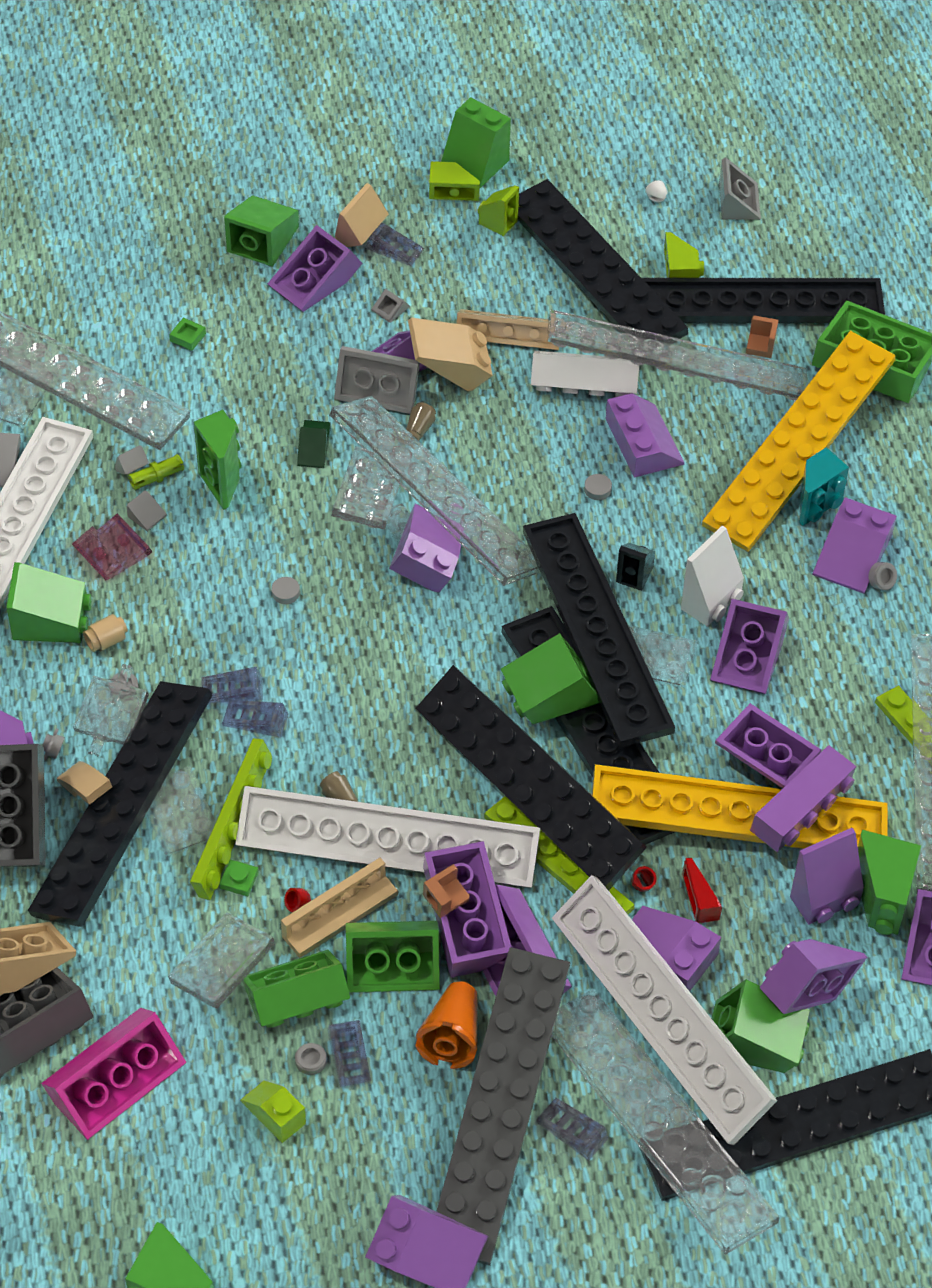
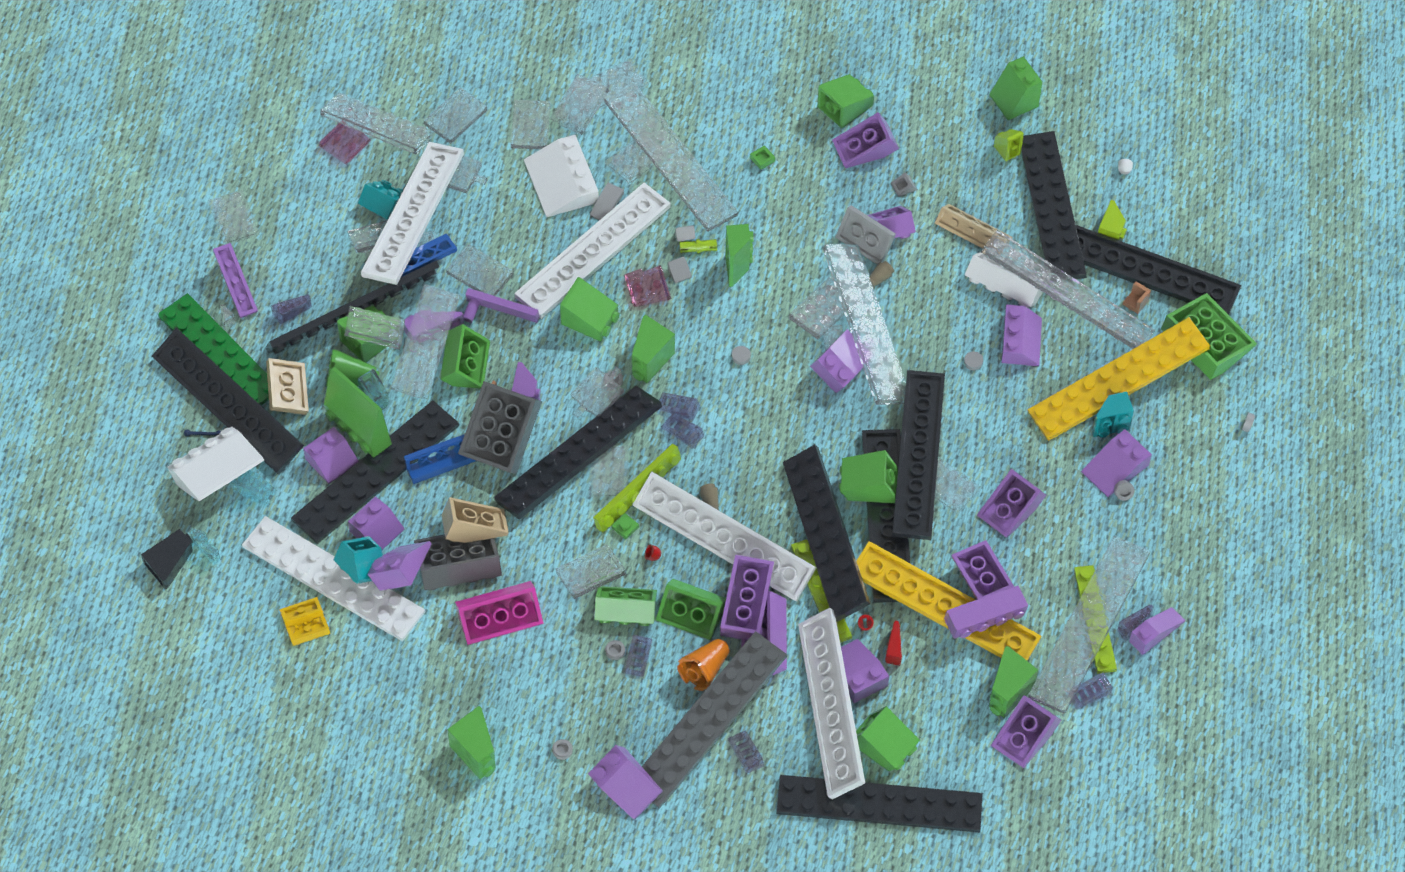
camera: 25 degrees right, 5 degrees up
(52, 744) = (553, 401): light grey plate -> none
(84, 782) = (560, 432): tan slope -> none
(105, 633) = (617, 341): tan brick -> none
(163, 623) = (652, 349): none -> bright green slope
(275, 1109) = (580, 671): lime slope -> none
(304, 1237) = (562, 749): none -> light grey tile
(313, 443) = (806, 263): dark green slope -> none
(340, 905) = (674, 567): tan fence -> none
(360, 217) = (911, 116): tan slope -> none
(384, 248) = (915, 136): slope -> none
(445, 891) = (735, 583): nougat panel -> none
(451, 351) = (921, 233): tan slope -> none
(452, 182) = (987, 109): lime slope -> none
(634, 565) = (966, 422): black slope -> none
(662, 1123) = (796, 767): clear plate -> none
(712, 579) = (1007, 450): white slope -> none
(738, 193) = (1179, 188): light grey slope -> none
(810, 974) = (927, 719): medium lavender slope -> none
(828, 878) = (973, 666): medium lavender slope -> none

